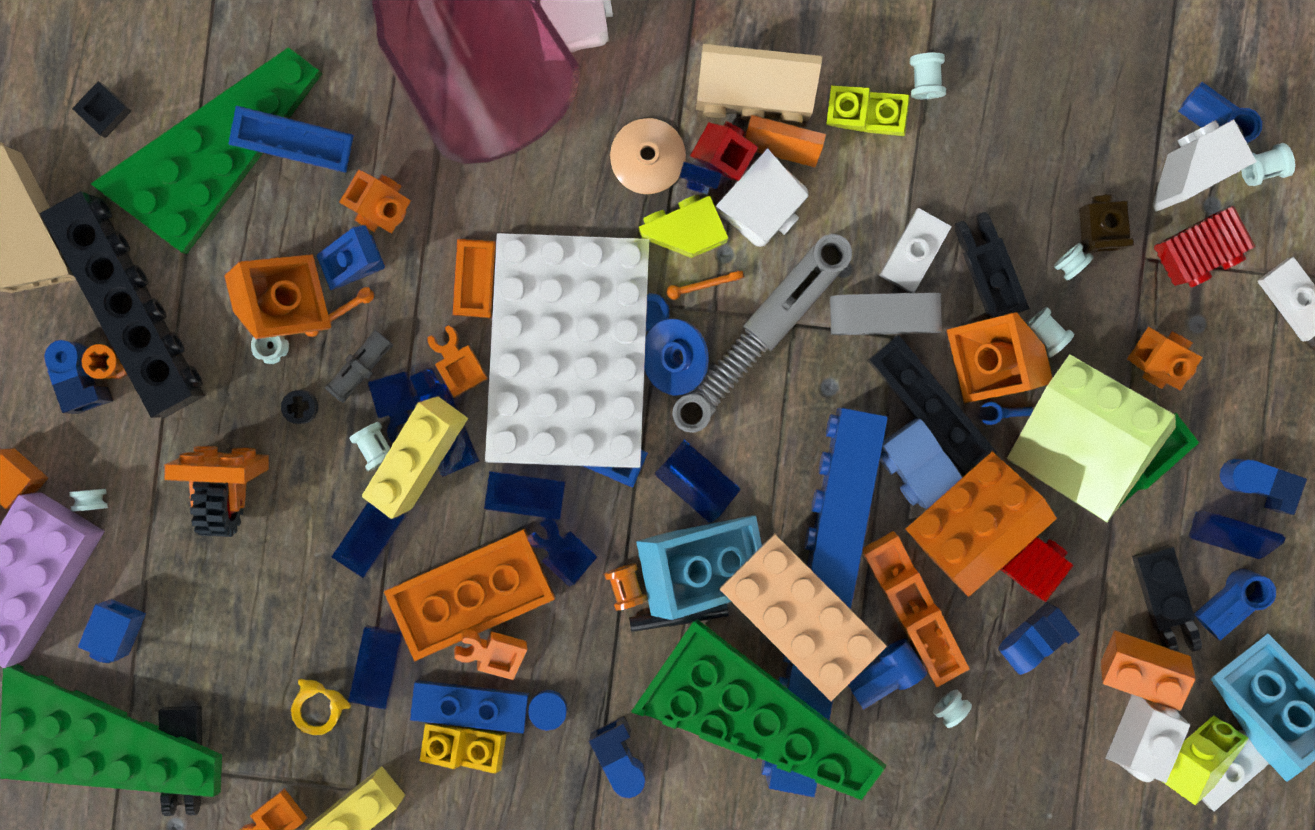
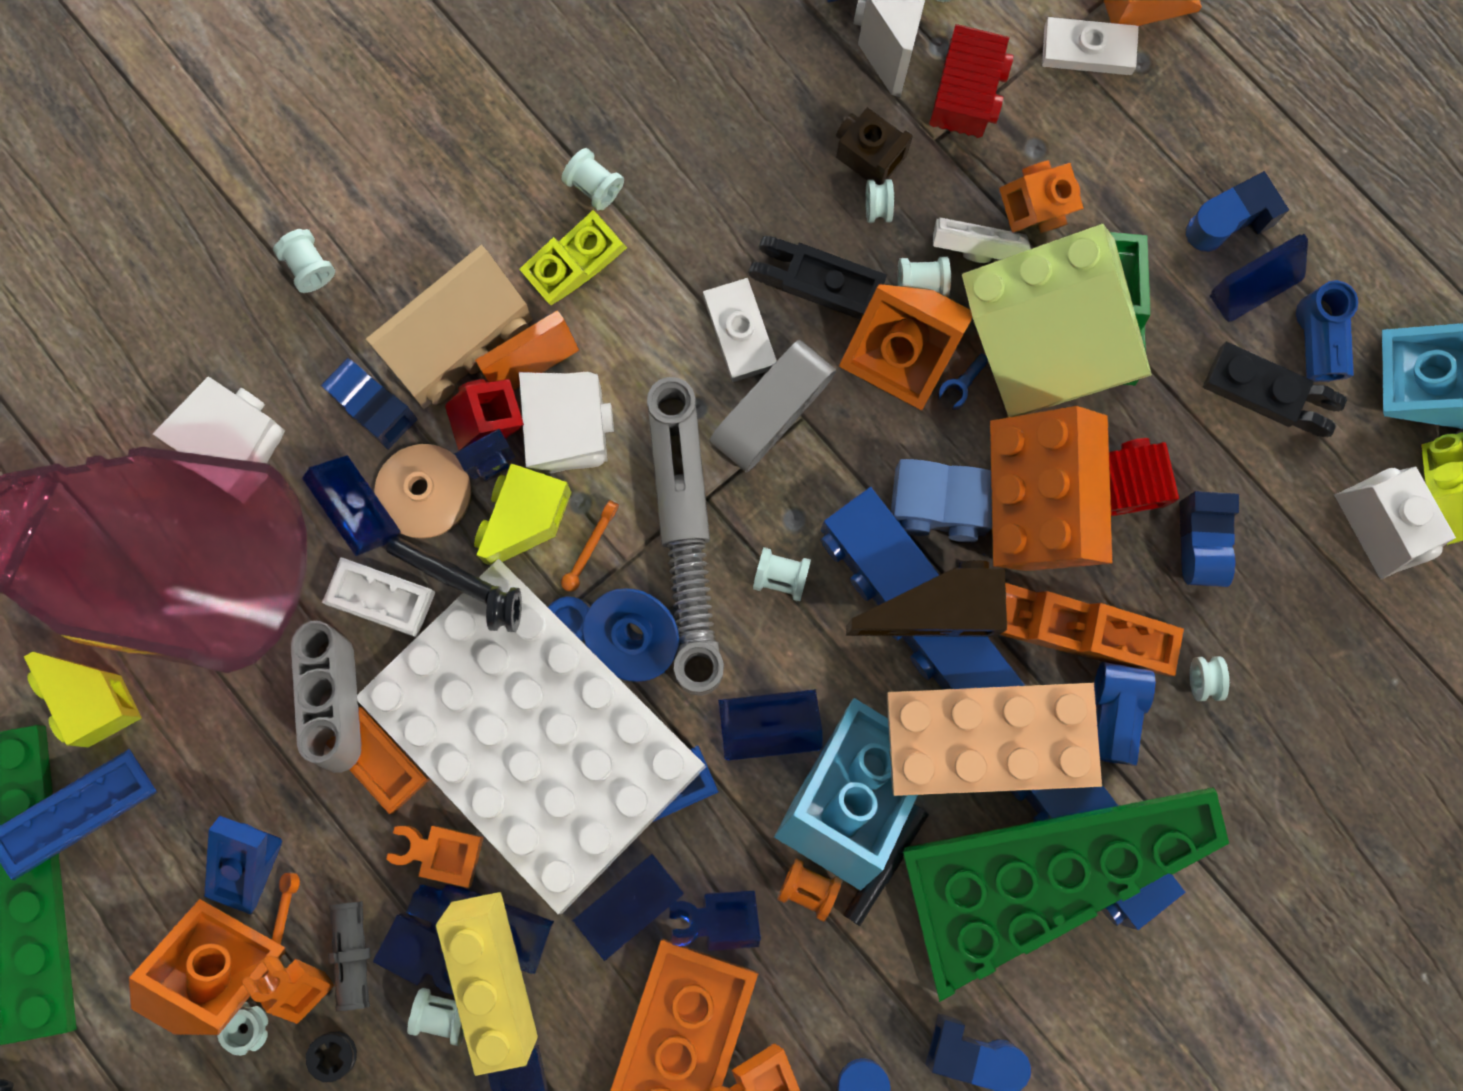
camera: 50 degrees left, 10 degrees down
(312, 352) = (289, 990): none -> orange plate
(356, 81) = (82, 699): none -> neon yellow slope
(375, 201) = (209, 785): orange brick -> none
(488, 201) = (310, 681): none -> light grey beam
(564, 191) = (378, 597): none -> white plate
(601, 124) = (351, 504): none -> clear blue plate
(612, 213) = (439, 568): none -> black piece
(622, 272) = (503, 609): none -> black bush
(669, 75) = (369, 403): none -> leg
(789, 410) = (781, 574): none -> light aqua bush
(861, 528) = (954, 604): none -> dark brown slope
(931, 404) = (888, 438): black plate -> none
(1102, 345) = (978, 241): none -> white plate
(1147, 670) = (1327, 463): orange brick -> none

